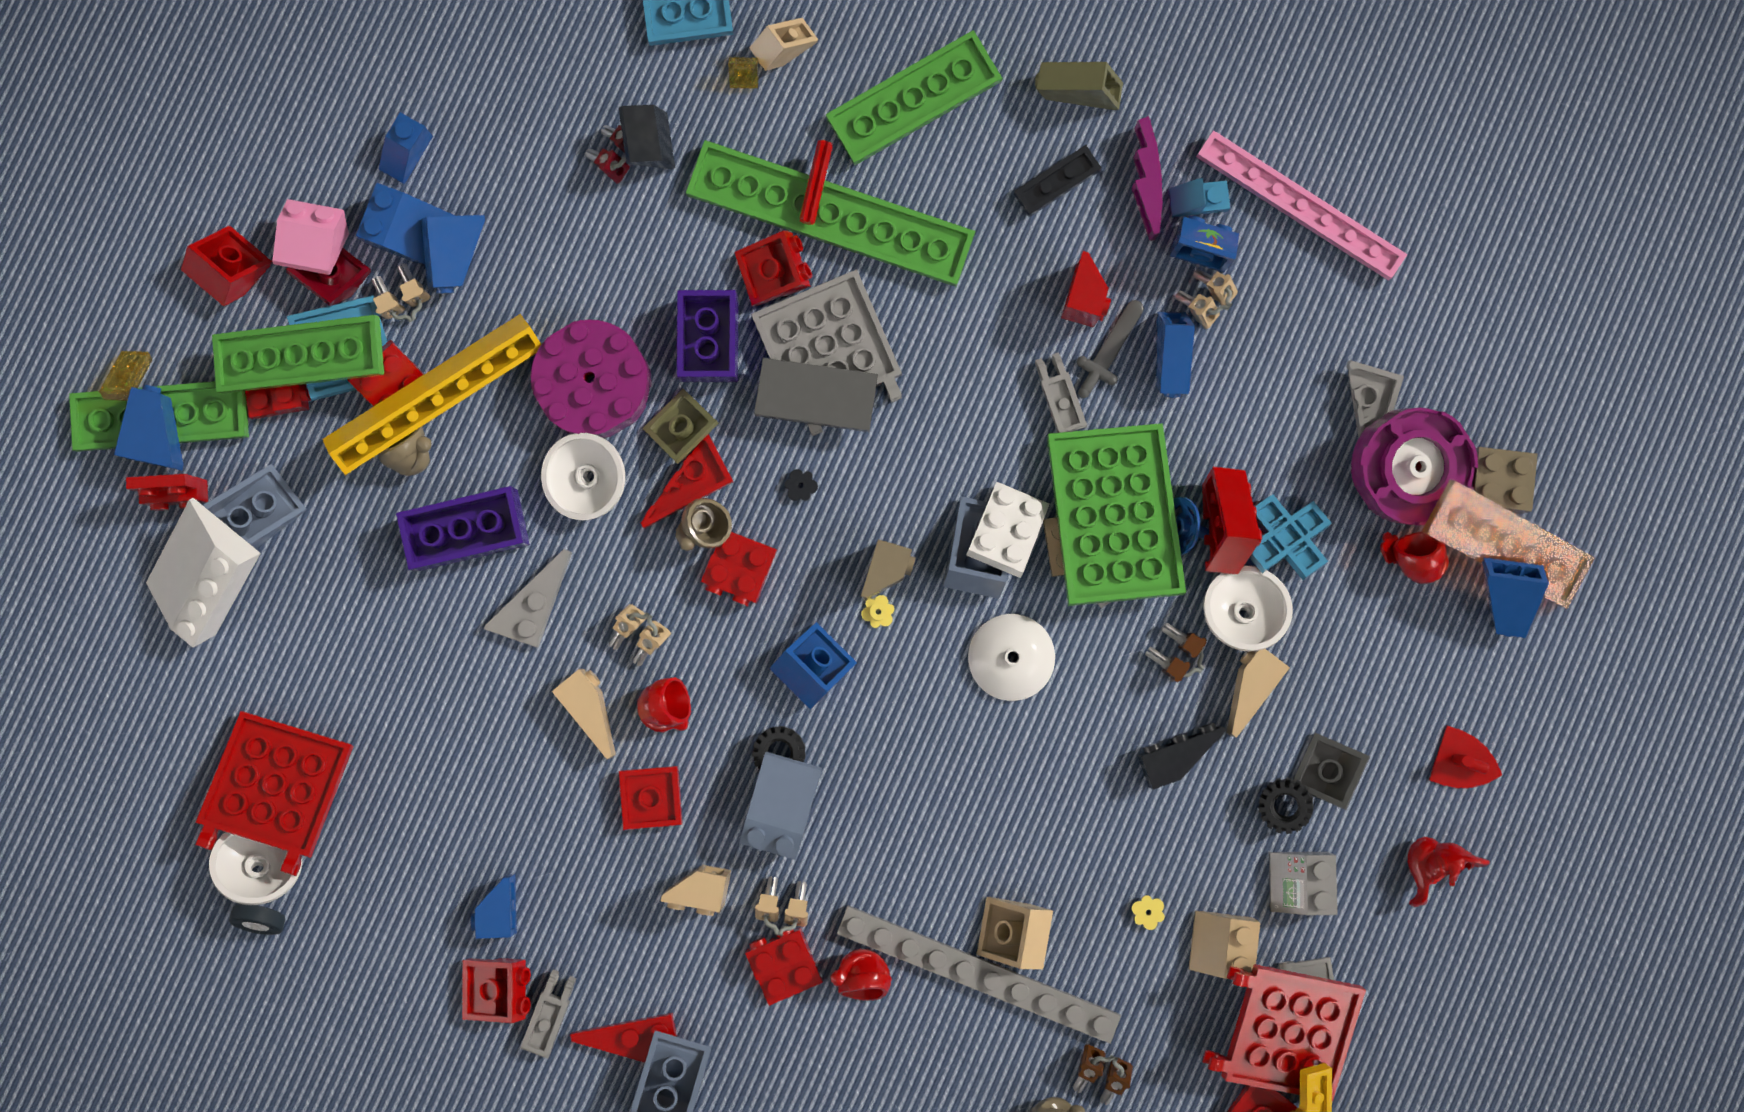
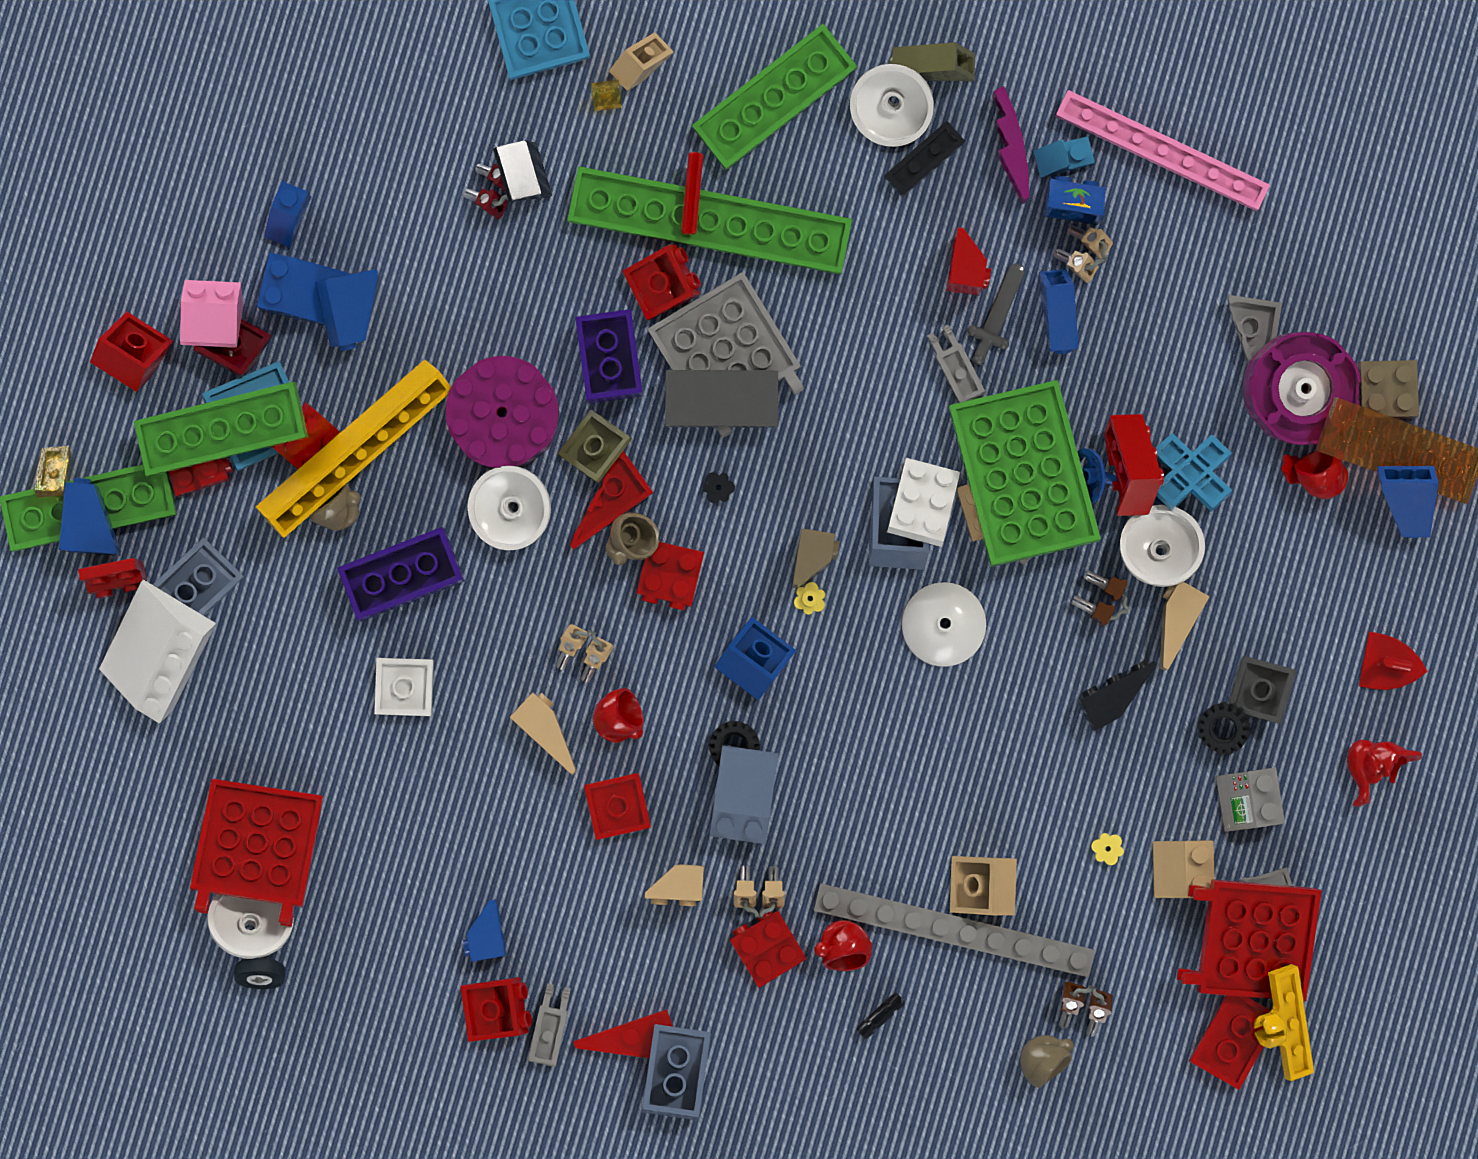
camera: 15 degrees left, 0 degrees up
(413, 295) = (294, 367): tan piece -> none
(451, 644) = (404, 687): none -> white plate
(530, 609) = (474, 644): light grey wing -> none
(890, 1052) = (880, 1015): none -> black axle
(1020, 136) = (890, 122): none -> white dish

